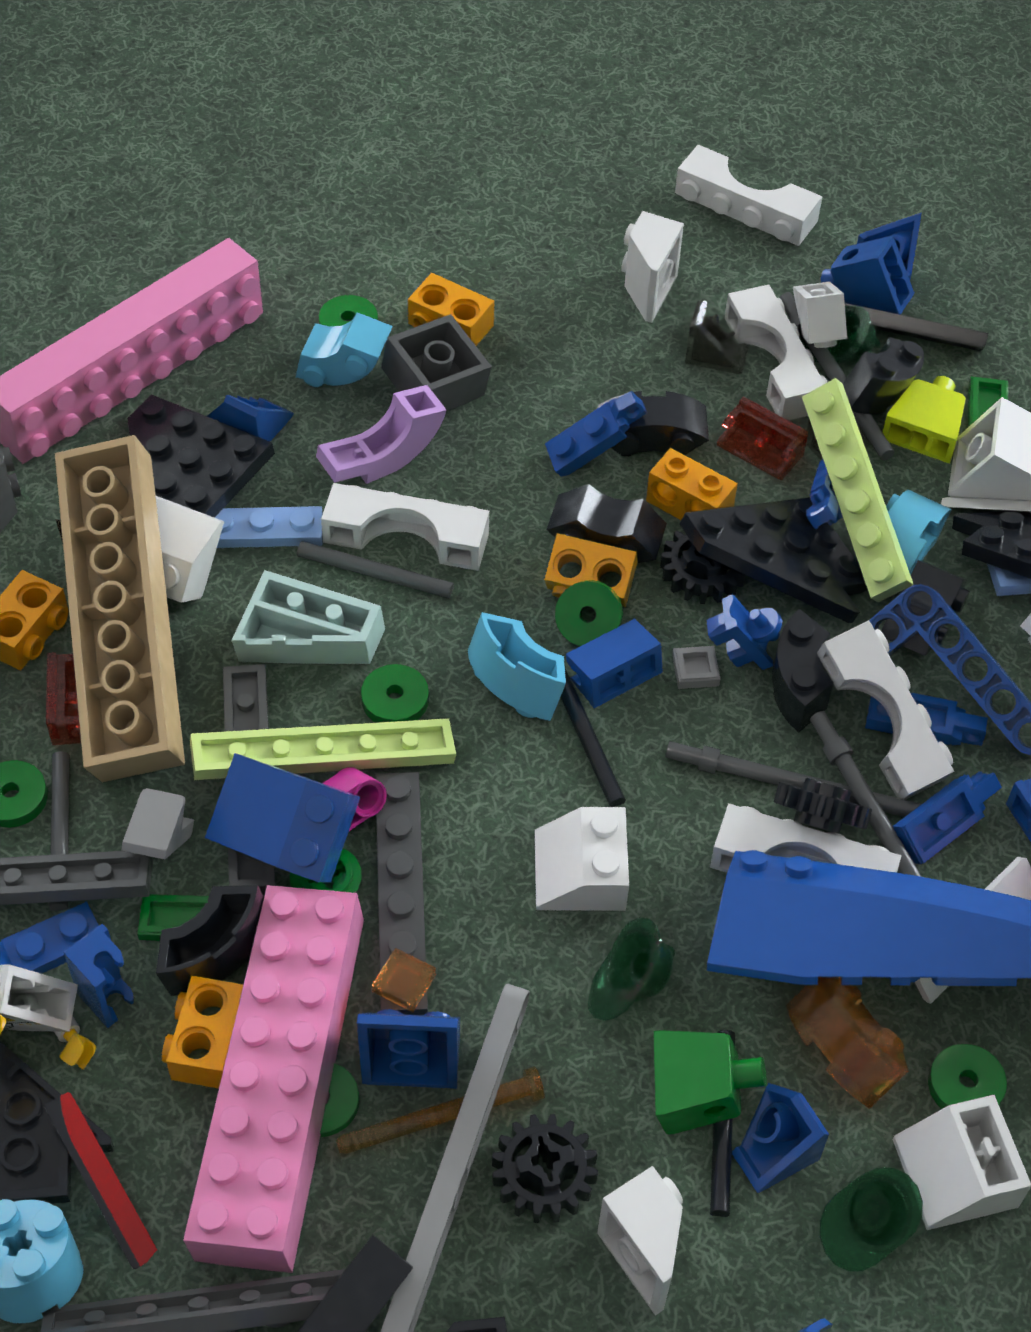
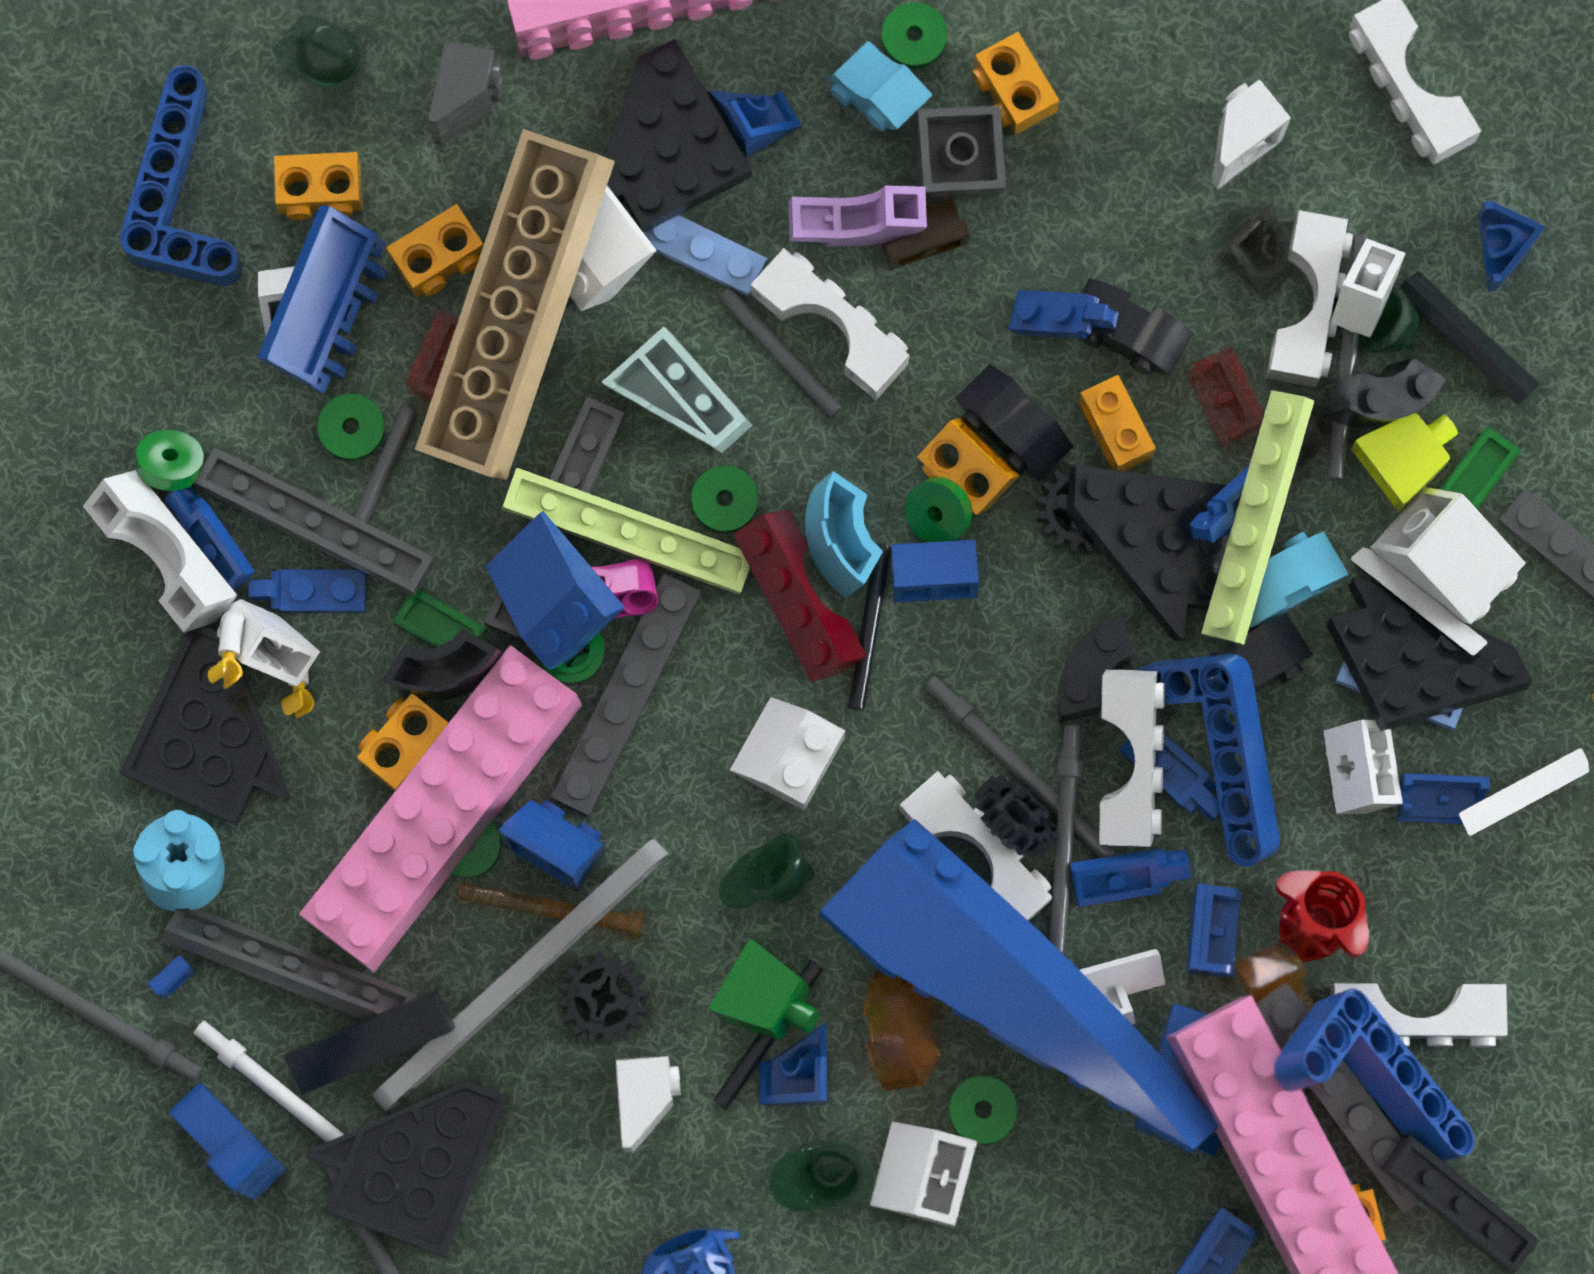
camera: 30 degrees right, 25 degrees up
(95, 968) = (337, 649): blue hinge -> none
(101, 1180) = (265, 823): red sticker -> none
(157, 825) = (448, 541): light grey slope -> none
(404, 980) = (579, 785): clear orange tile -> none
(449, 440) = (942, 234): none -> dark brown panel
(511, 729) = (818, 635): none -> dark red arch
(696, 667) = (1008, 610): light grey tile -> none
(745, 632) = (1061, 608): blue hips -> none
(871, 276) = (1454, 247): blue torso -> none

